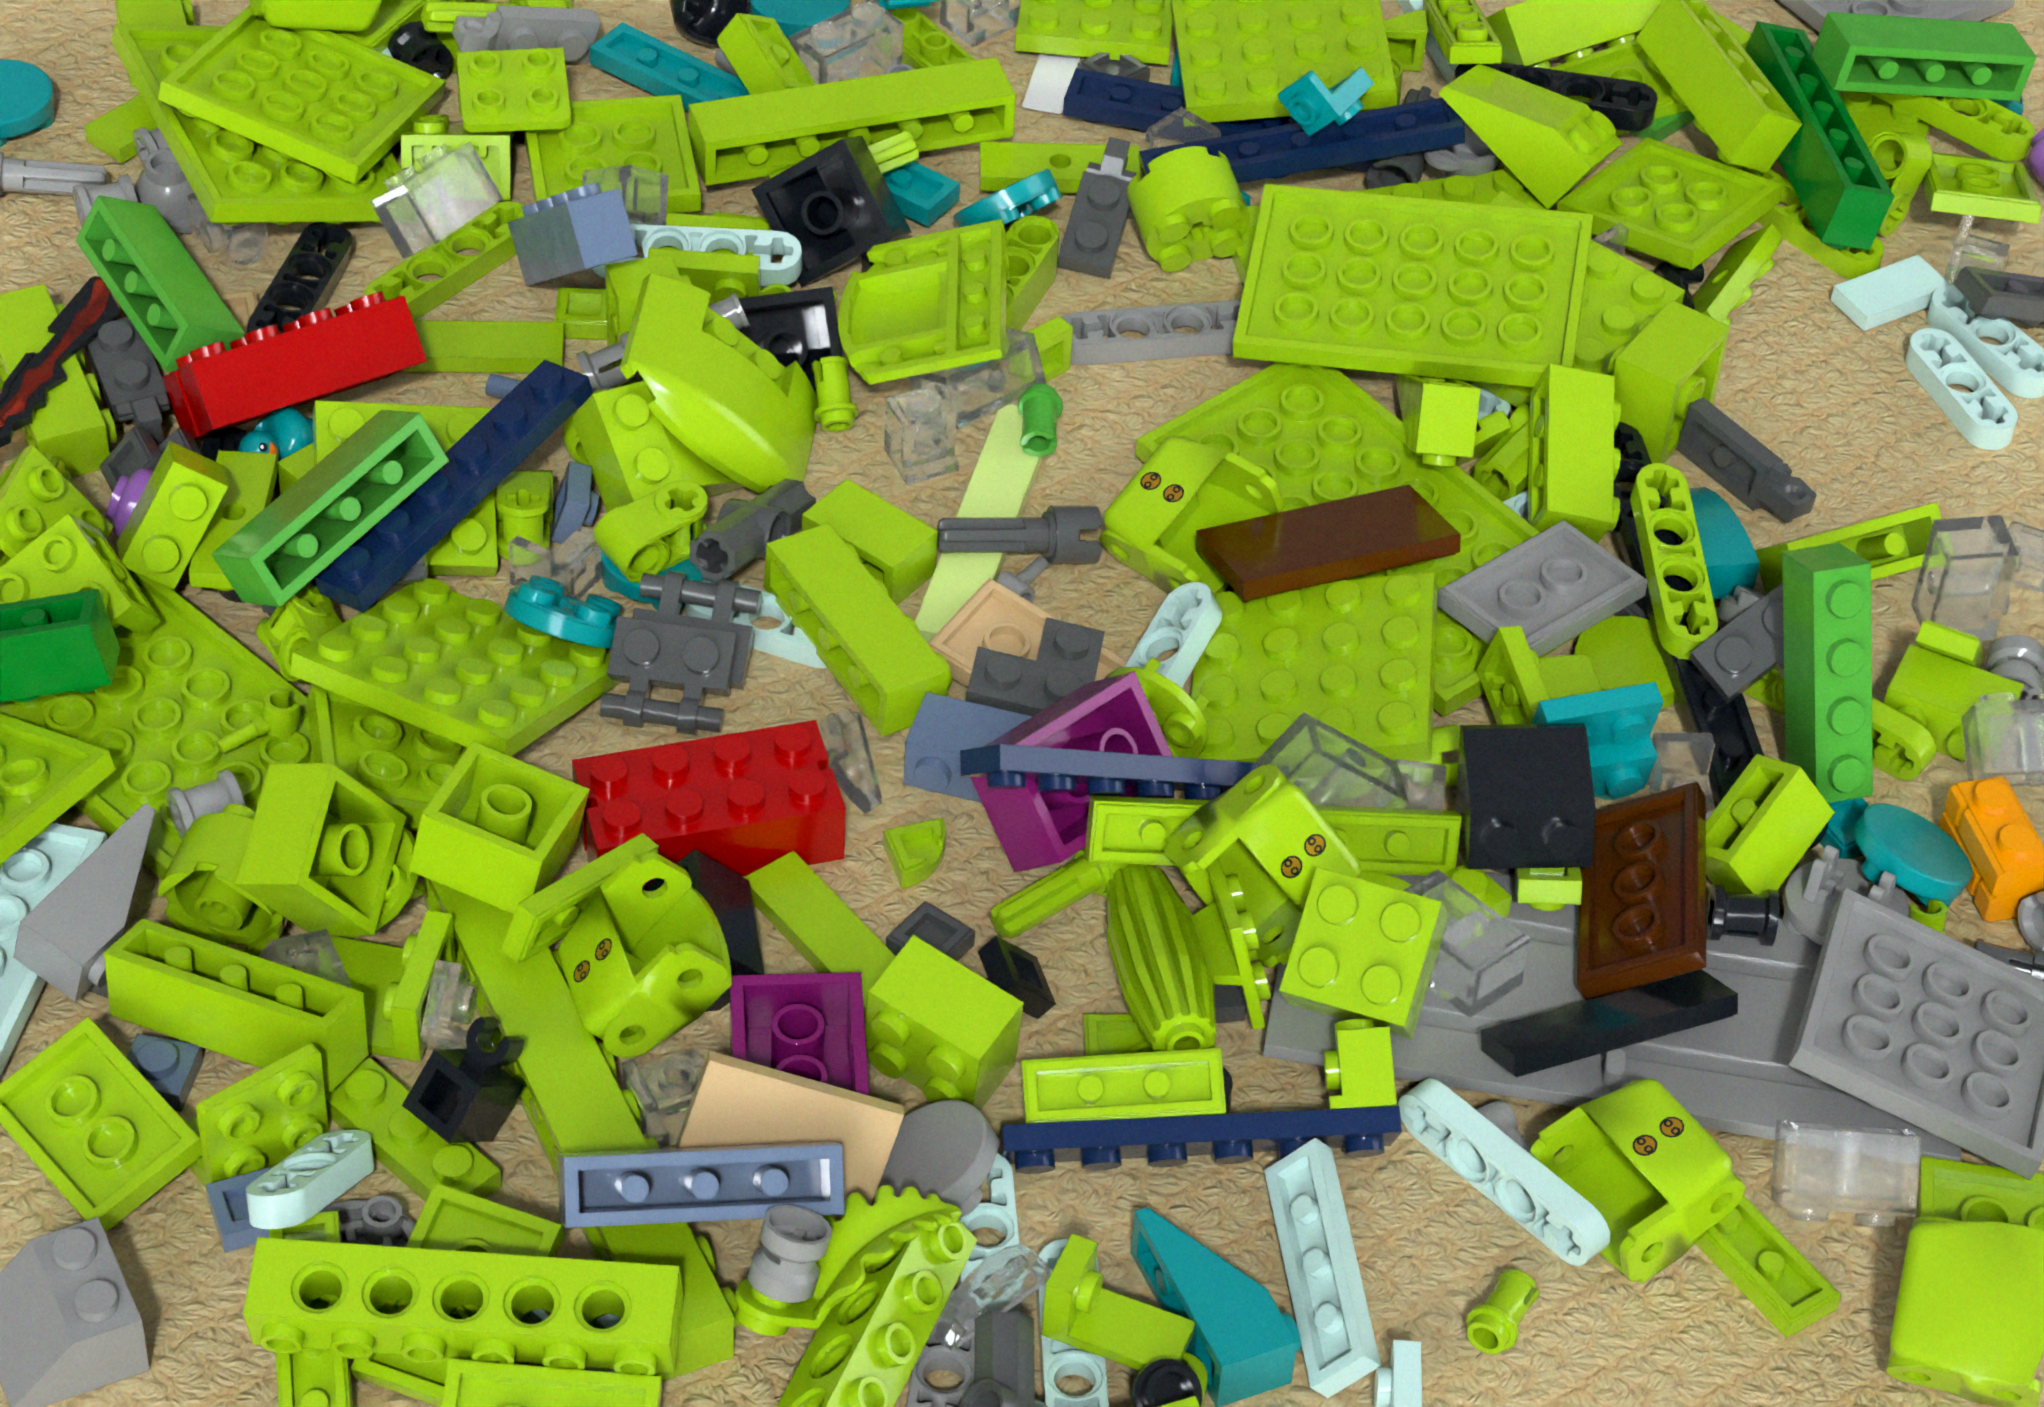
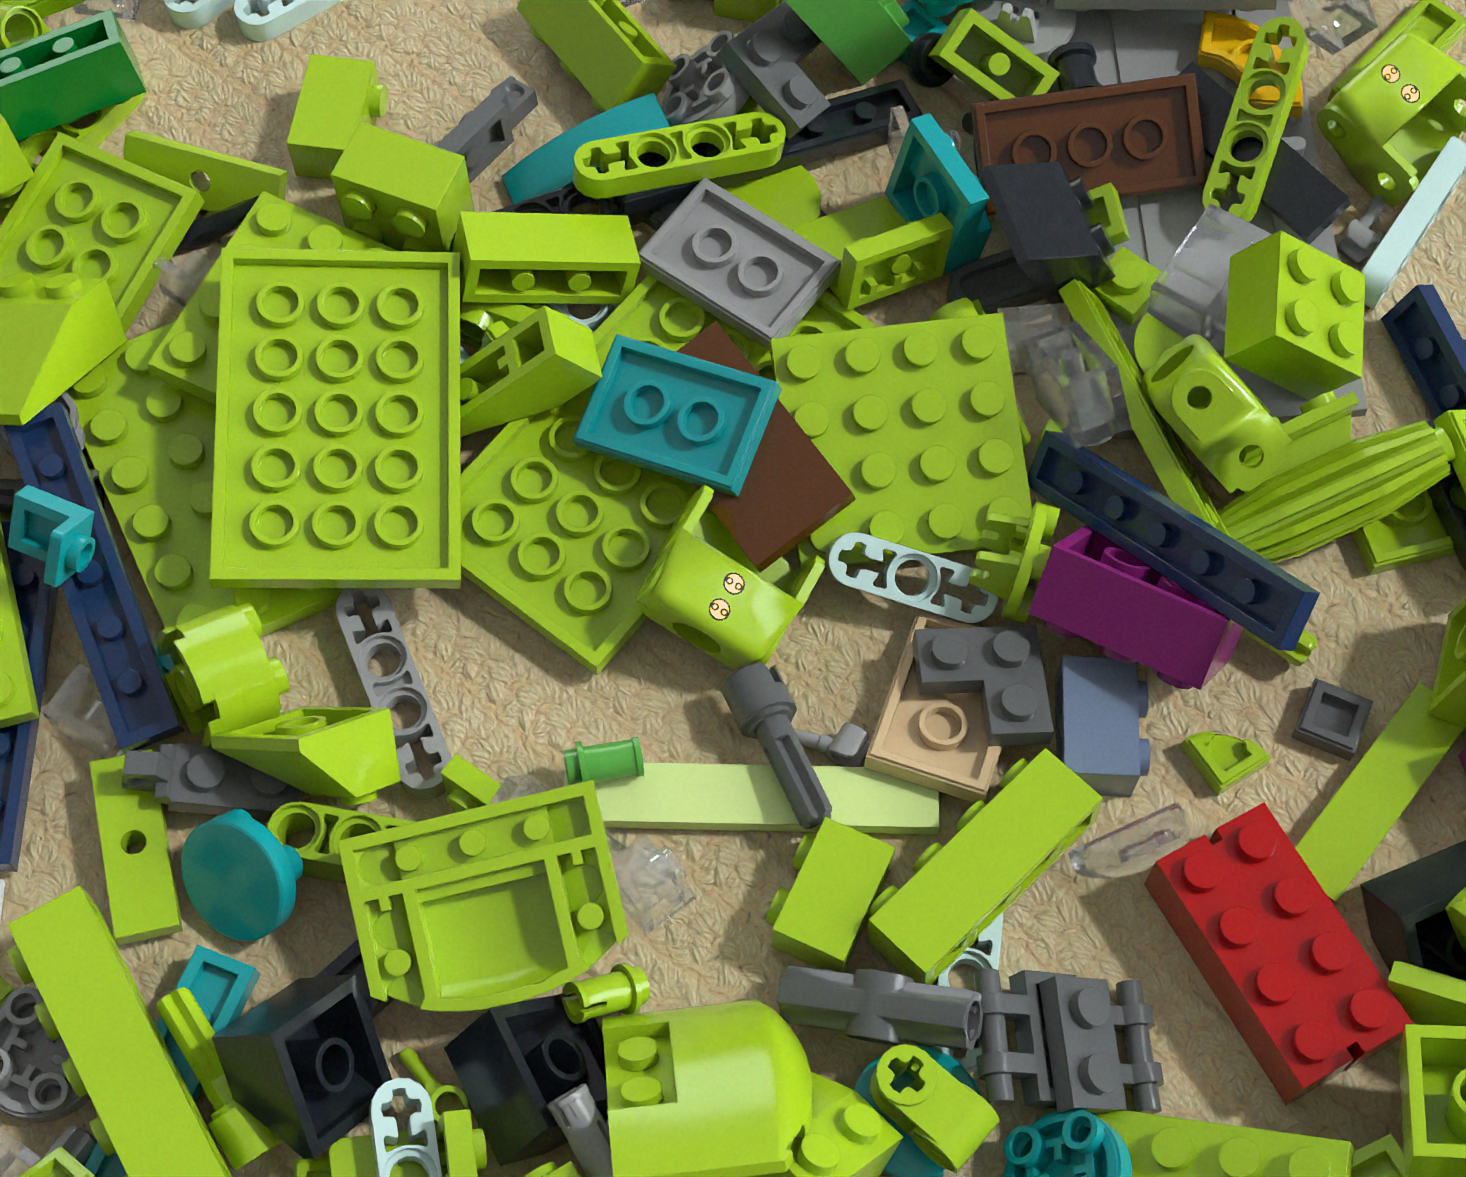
camera: 100 degrees left, 20 degrees up
(1018, 975) = (1366, 626): black plate -> none
(1100, 250) = (321, 750): none -> lime slope
(1360, 1066) = (1397, 321): lime brick -> none
(1367, 499) = (677, 415): none -> teal tile
(1632, 1004) = (1262, 124): none -> lime beam
(1732, 1069) = (1226, 47): none -> yellow tile
(1784, 374) = (329, 109): none -> lime brick
(1888, 292) = (173, 53): light aqua tile -> none

